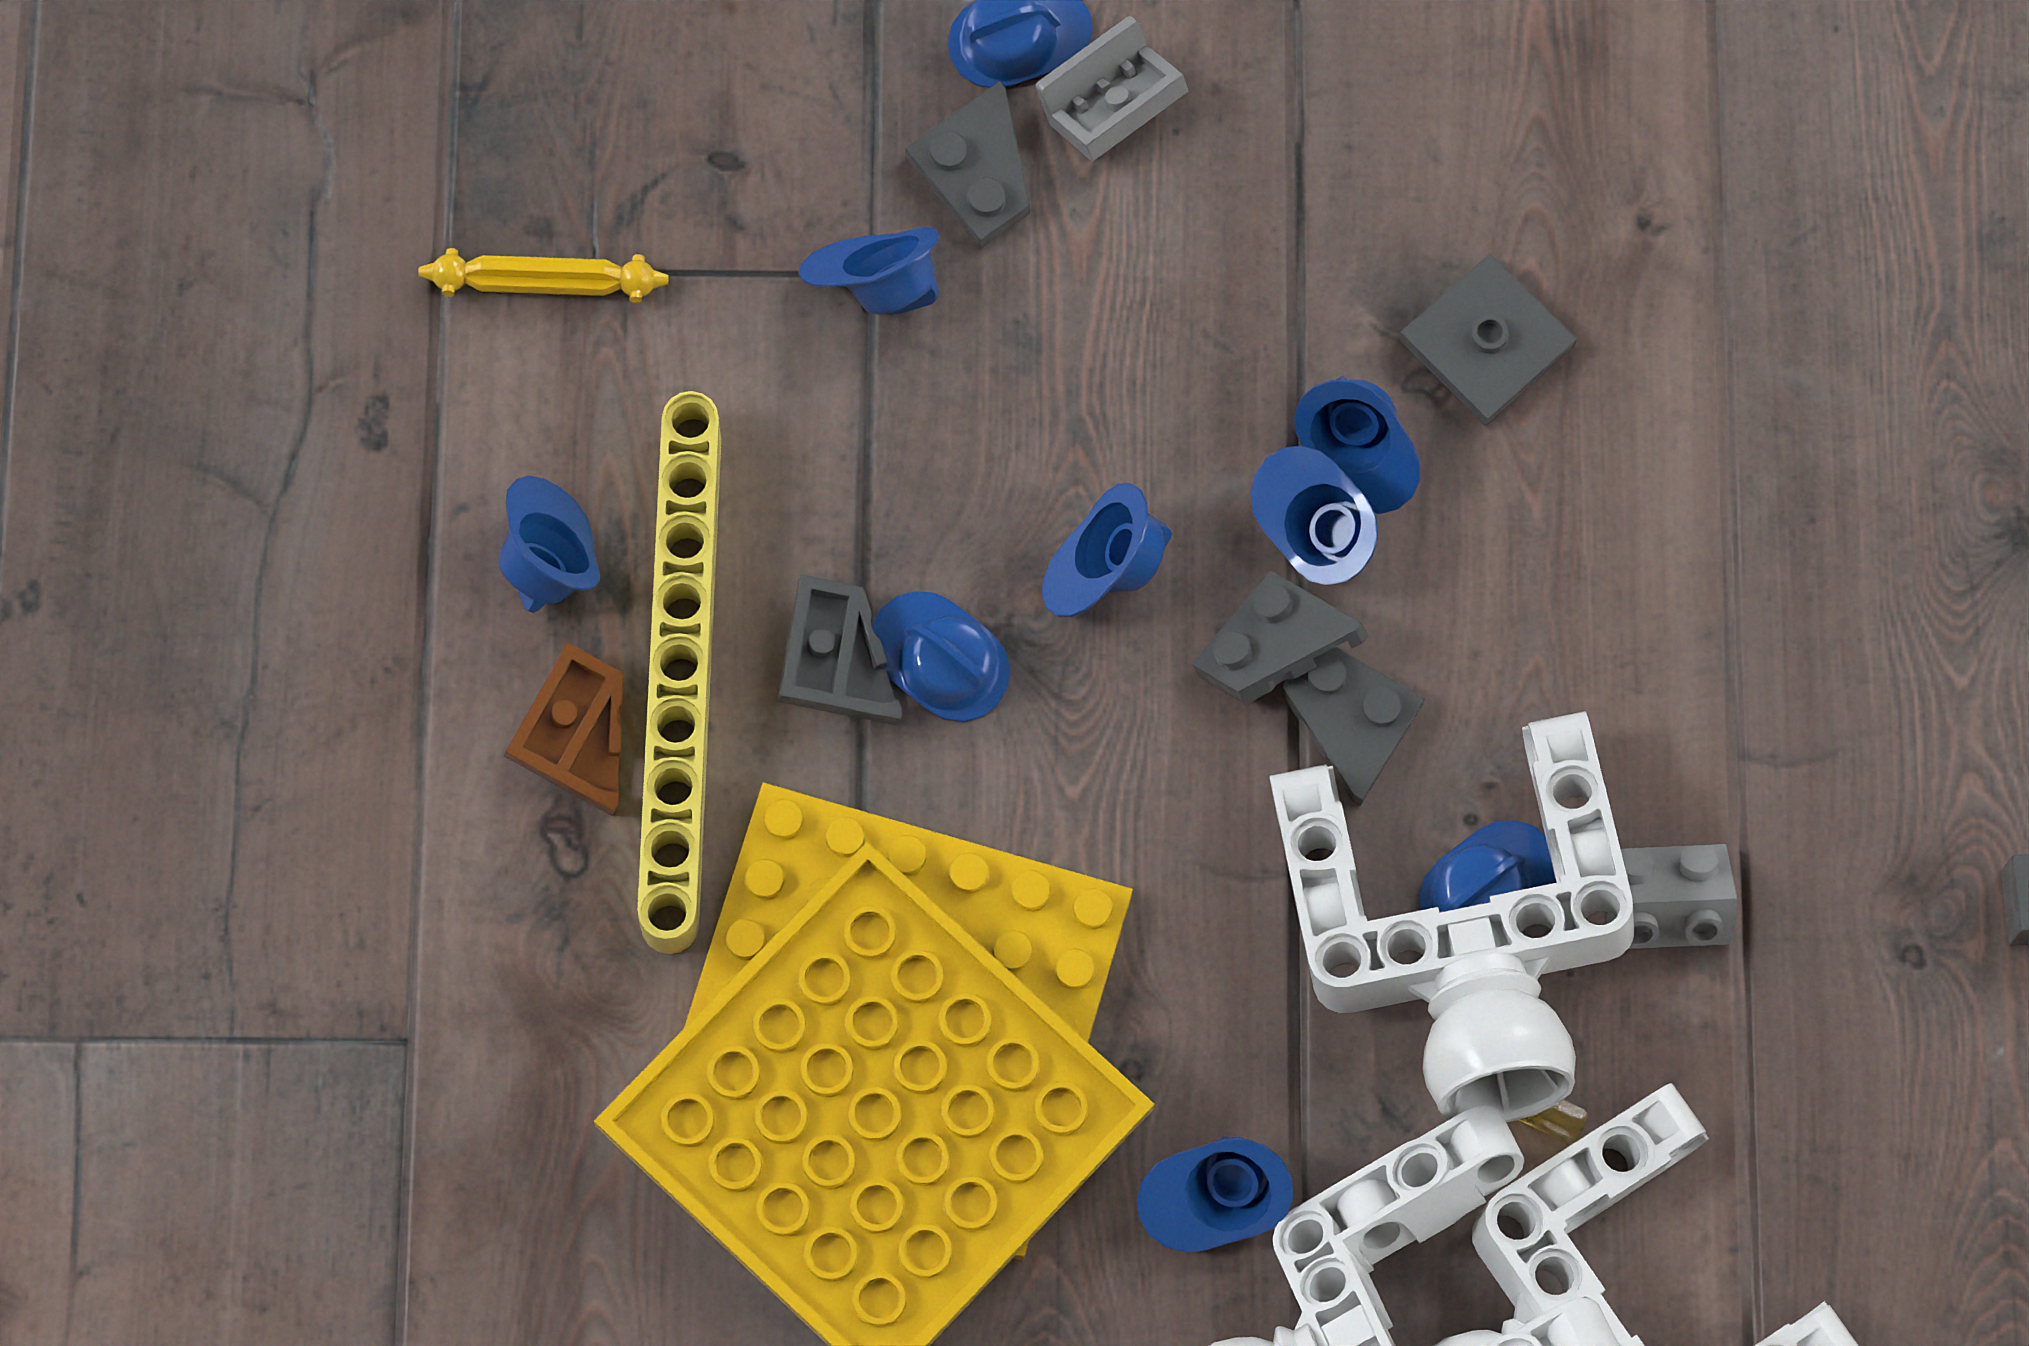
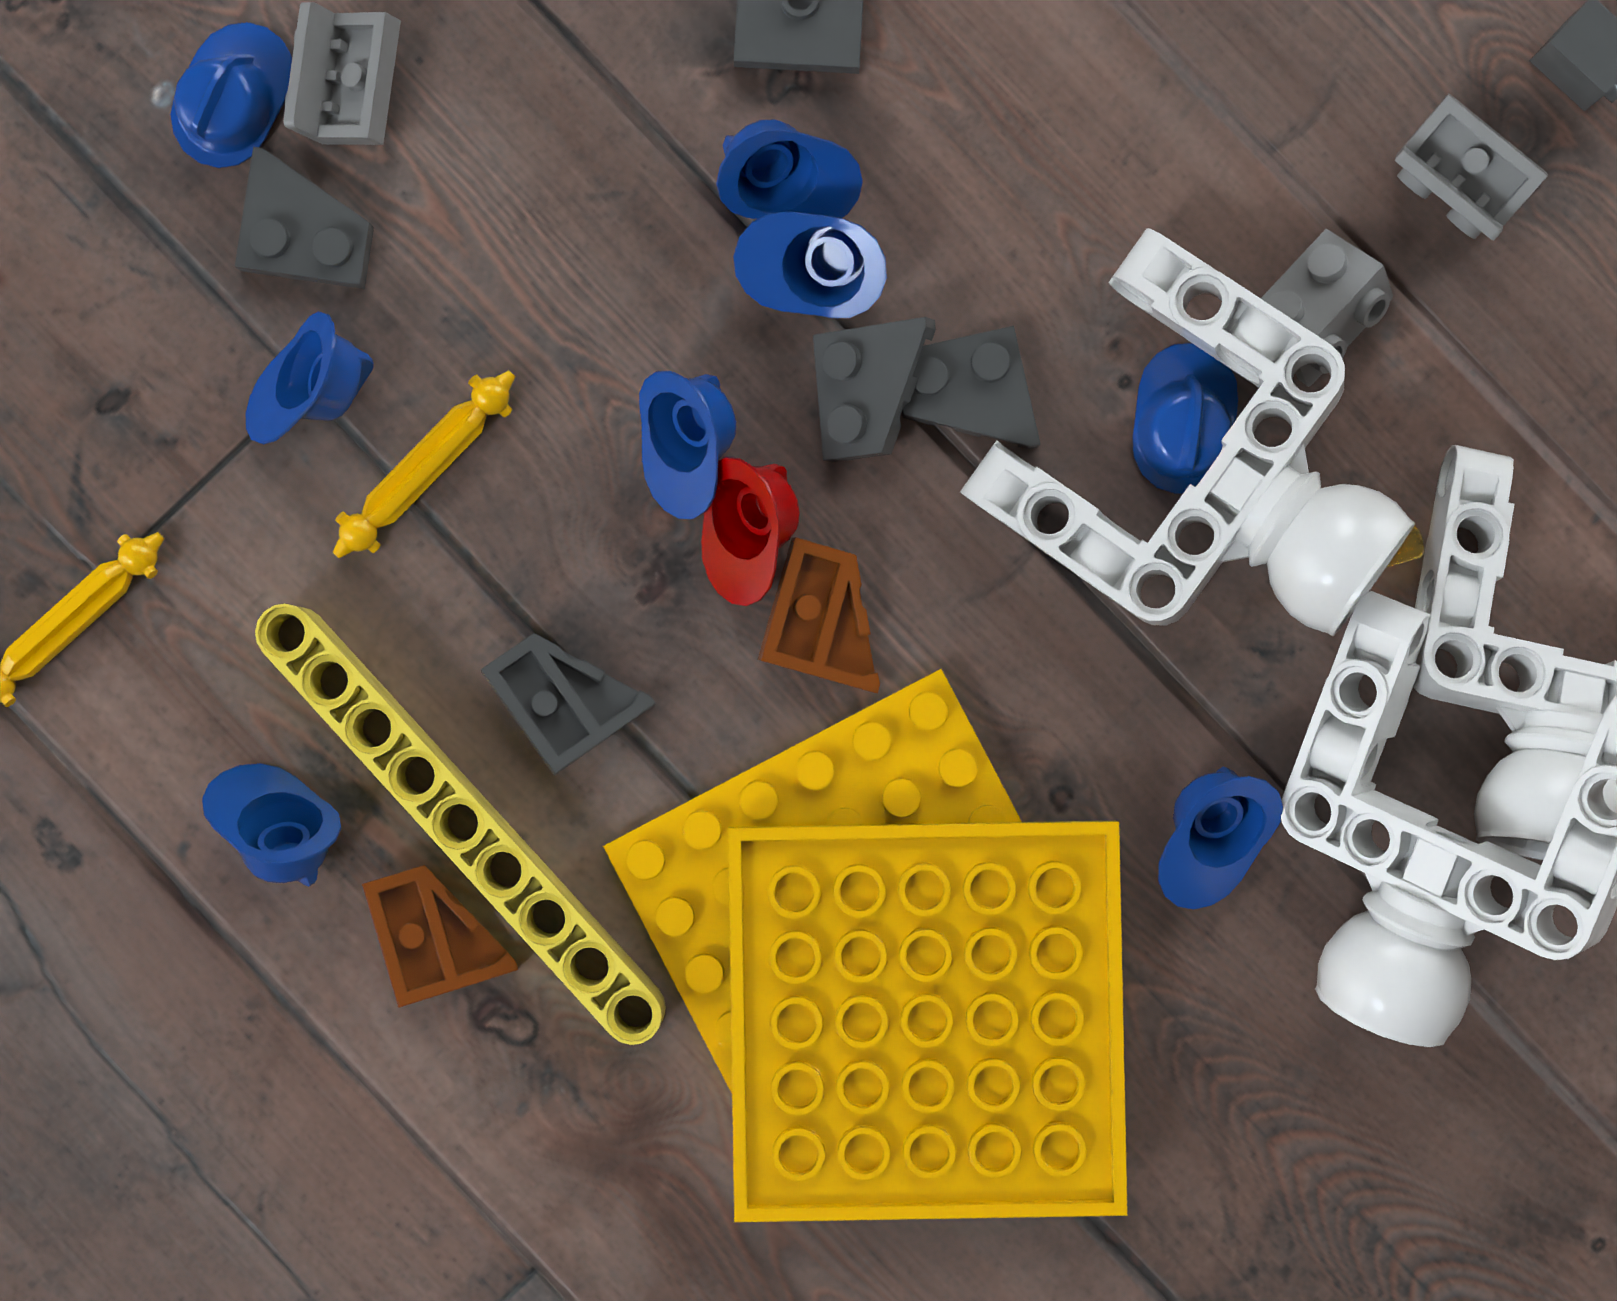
camera: 40 degrees left, 15 degrees up
(902, 402) = (424, 464): none -> yellow wheel
(942, 656) = (636, 625): blue piece -> none
(1079, 772) = (820, 618): none -> dark orange wing
(1090, 654) = (746, 528): none -> red piece
(1871, 897) = (1468, 169): none -> light grey bracket

